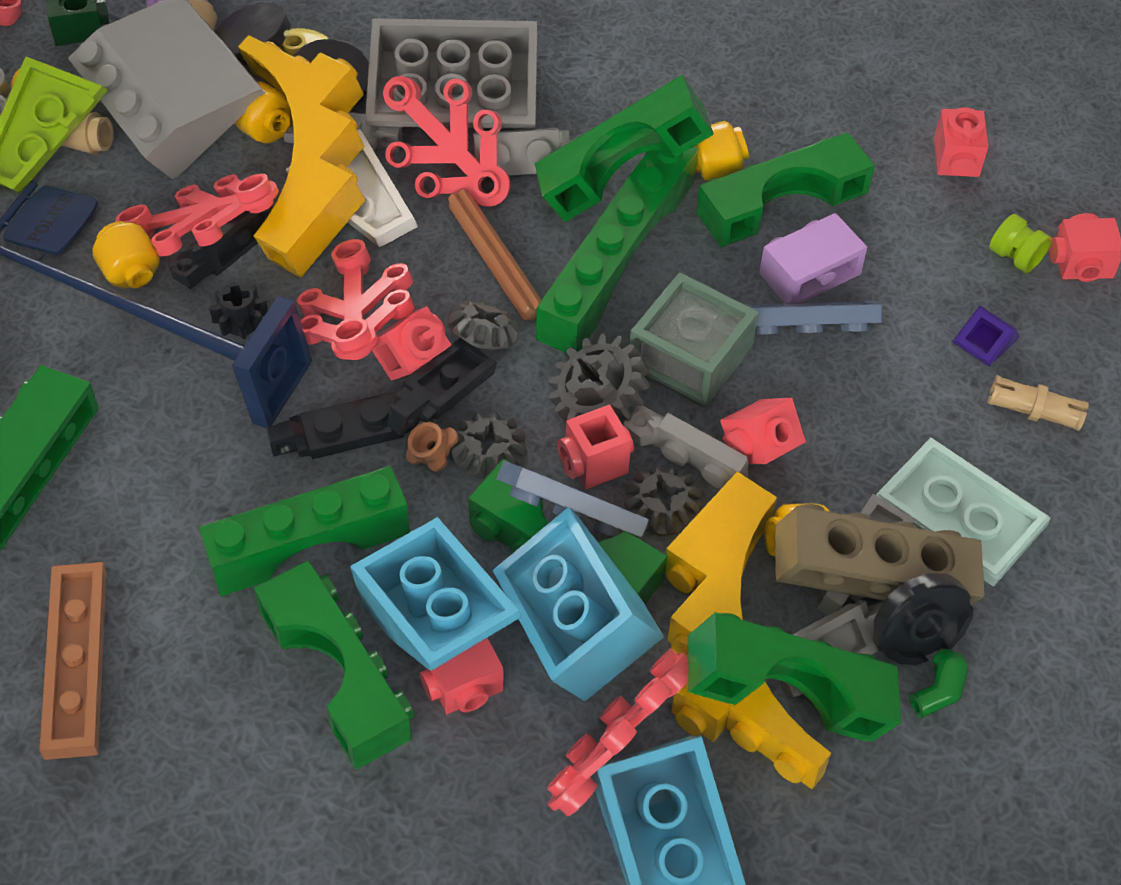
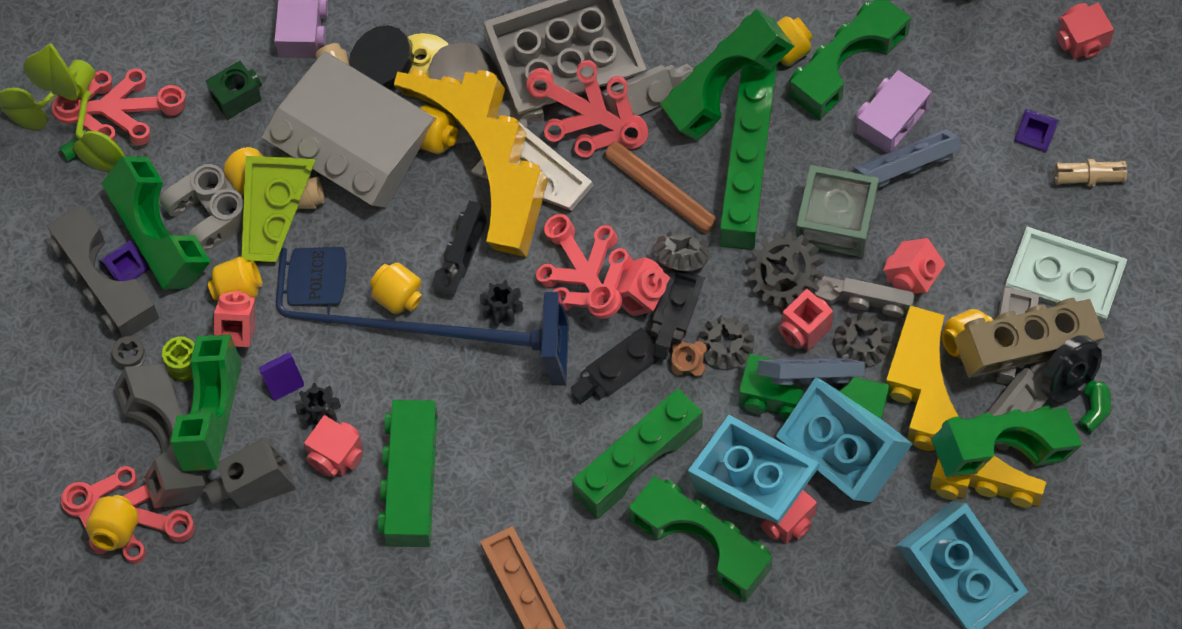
camera: 15 degrees left, 10 degrees up
(203, 211) = (470, 212): coral plant -> none
(574, 784) = (910, 519): coral plant -> none
(1020, 243) = (1035, 43): lime wheel -> none

